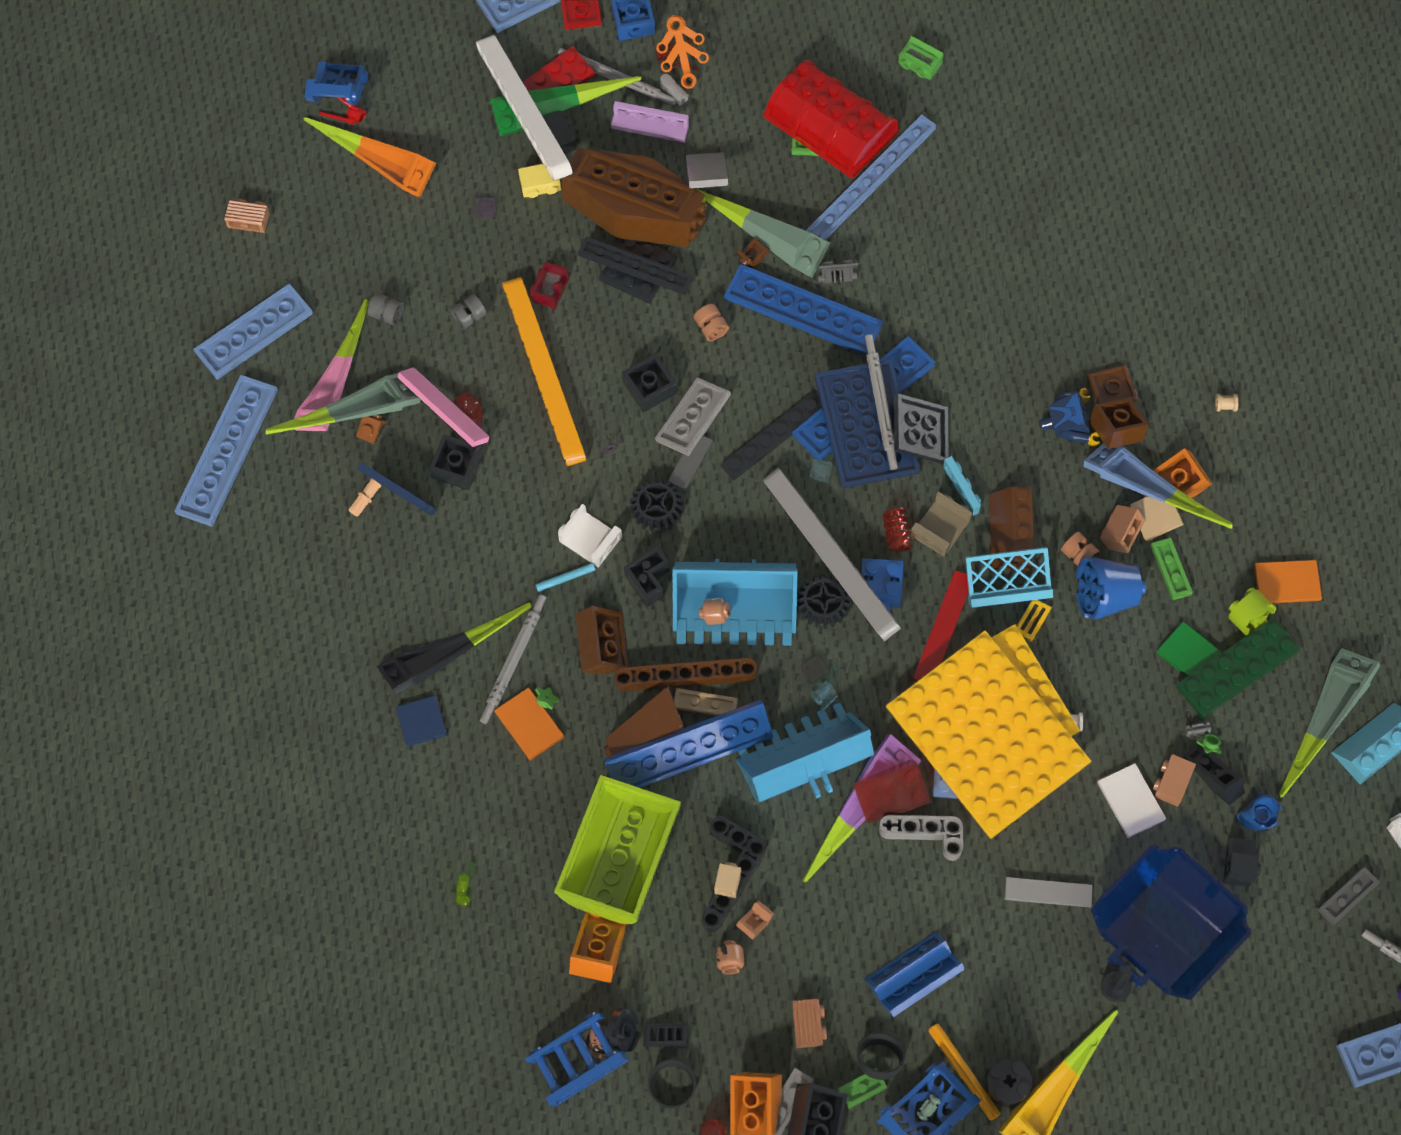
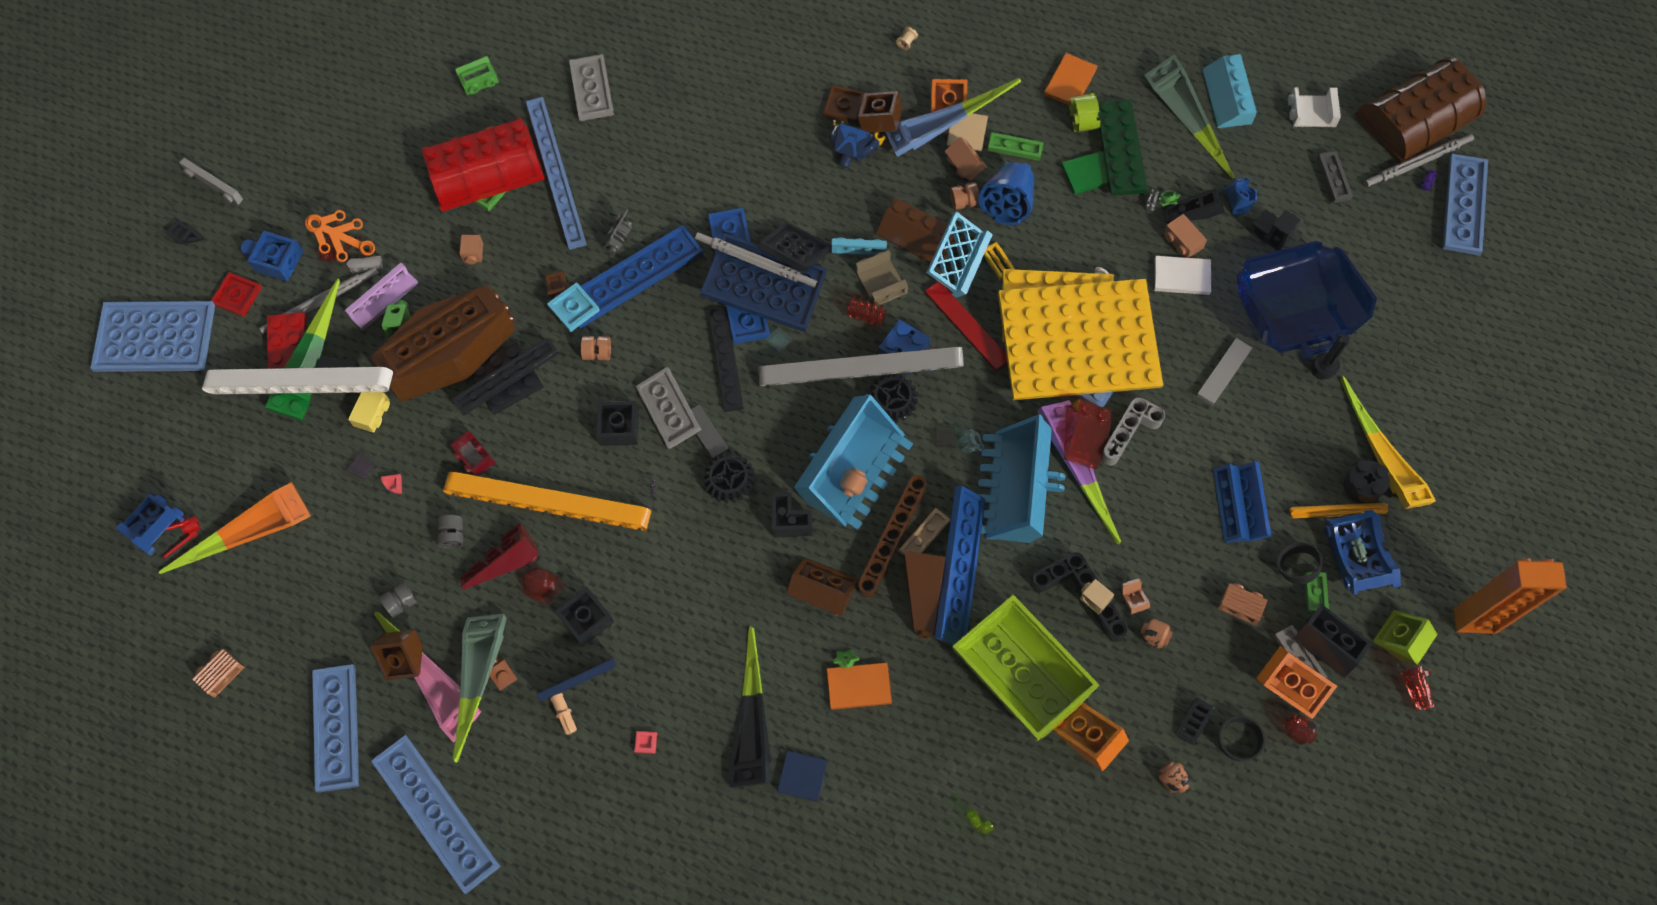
camera: 60 degrees left, 0 degrees up
(339, 338) = (398, 654): none -> reddish brown slope
(378, 577) = (645, 742): none -> coral tile
(443, 407) = (526, 599): bright pink tile -> none
(479, 373) = (512, 554): none -> dark red wedge
(486, 241) = (393, 483): none -> coral tile
(513, 659) = (793, 668): light grey axle -> none
(565, 577) = (745, 585): medium azure bar -> none
(589, 536) = (722, 546): white panel -> none
(595, 1070) = (1204, 815): blue fence -> none
(622, 1030) = (1181, 753): black plate -> none
(634, 144) = (395, 317): none -> bright green torso
(706, 170) = (462, 274): light grey tile -> none
(736, 279) = (573, 307): none -> medium azure plate
(742, 163) = (471, 248): none -> nougat brick
(793, 245) = (570, 251): sand green plate -> none
(975, 159) = (591, 87): none -> light grey plate

